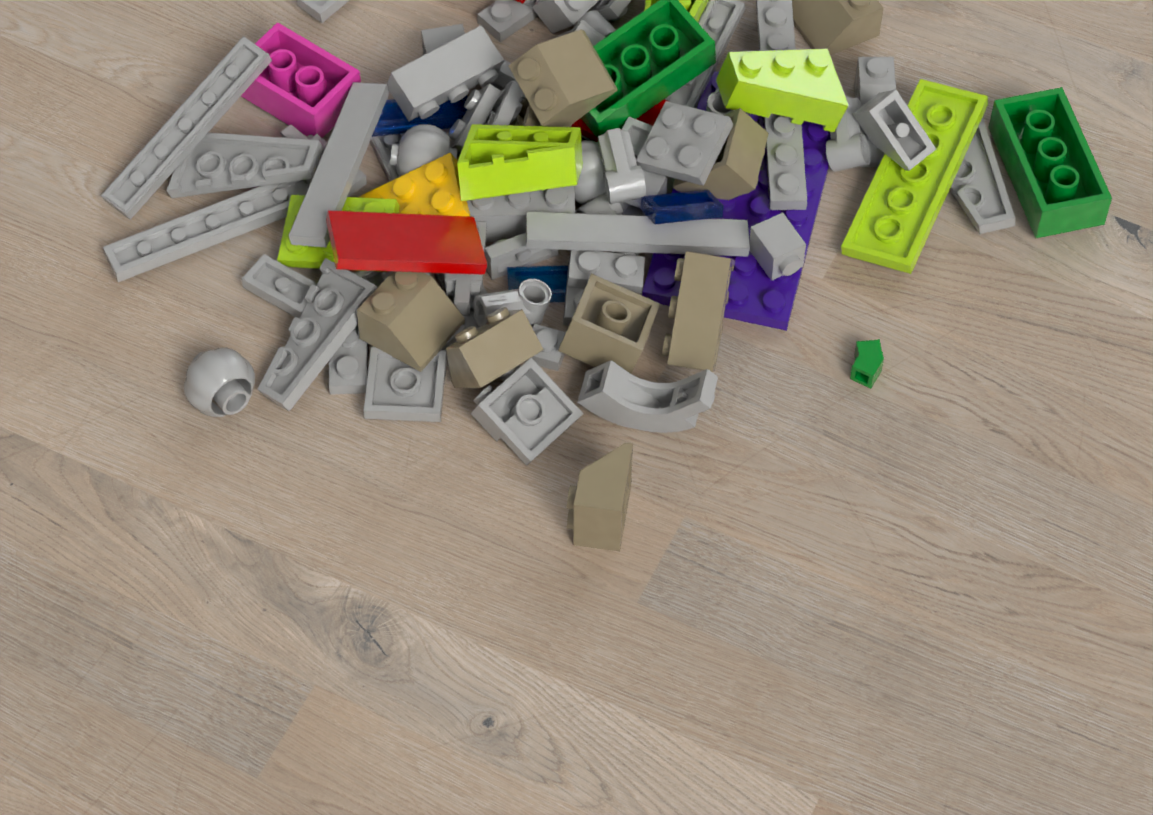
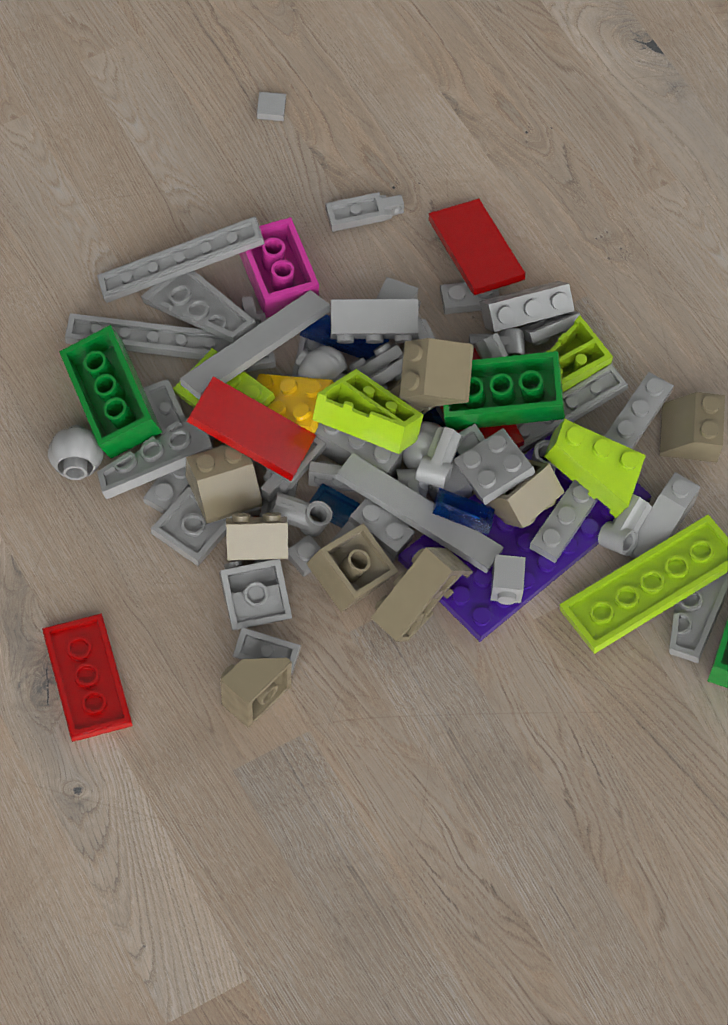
camera: 30 degrees right, 5 degrees up
(214, 296) = (110, 392): none -> green brick
(409, 602) = (87, 677): none -> red tile
(565, 461) = (259, 645): none -> light grey plate
(646, 404) = (336, 634): light grey arch -> none
(867, 362) = (514, 700): green piece -> none
(894, 129) = (655, 543): light grey slope -> none

